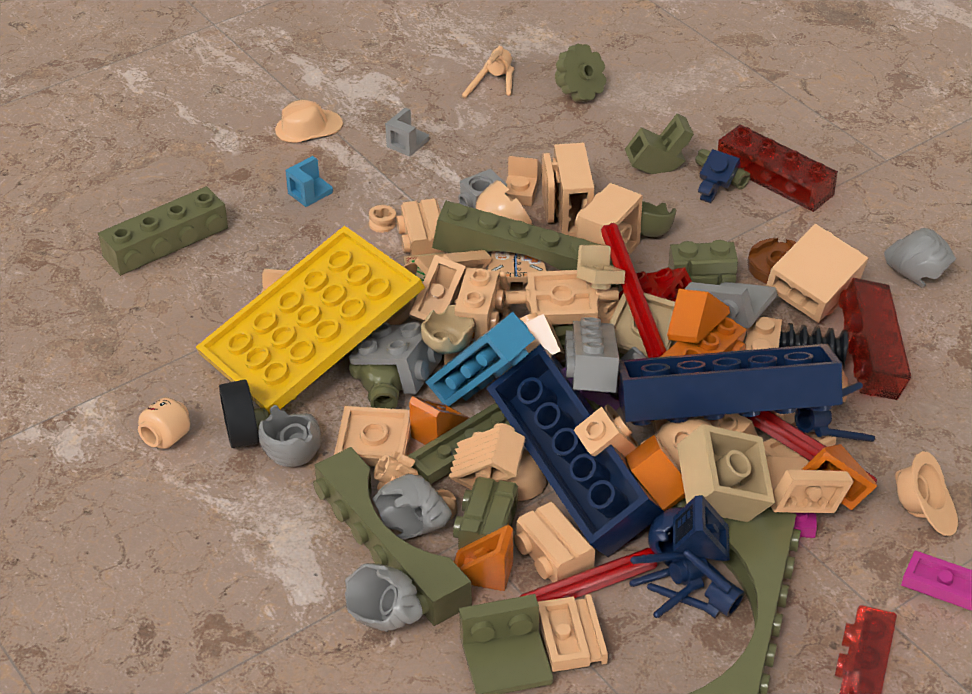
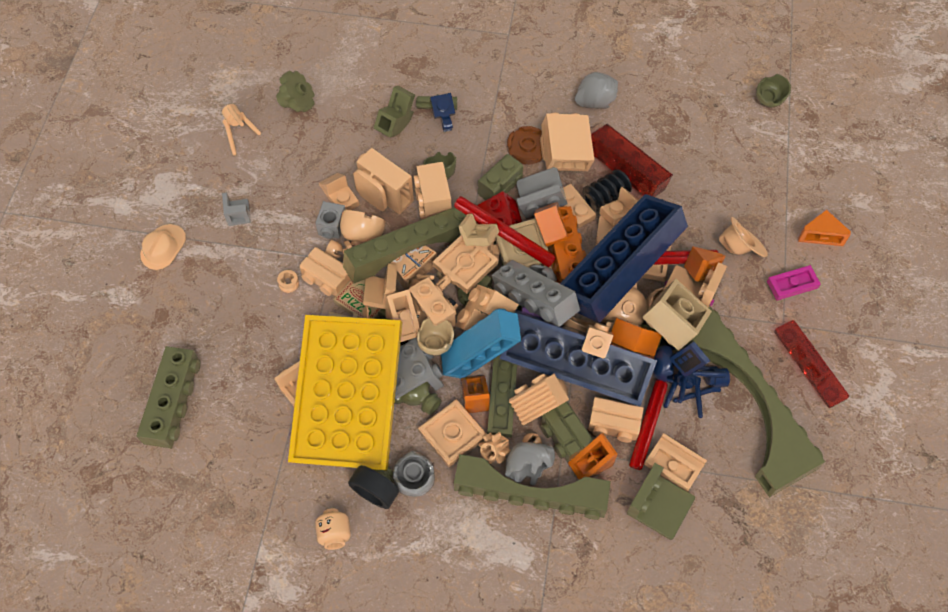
camera: 45 degrees left, 20 degrees up
(305, 183) = (217, 292): dark azure panel -> none
(382, 597) = (578, 531): light grey hair -> none
(780, 168) = (468, 81): clear red brick -> none

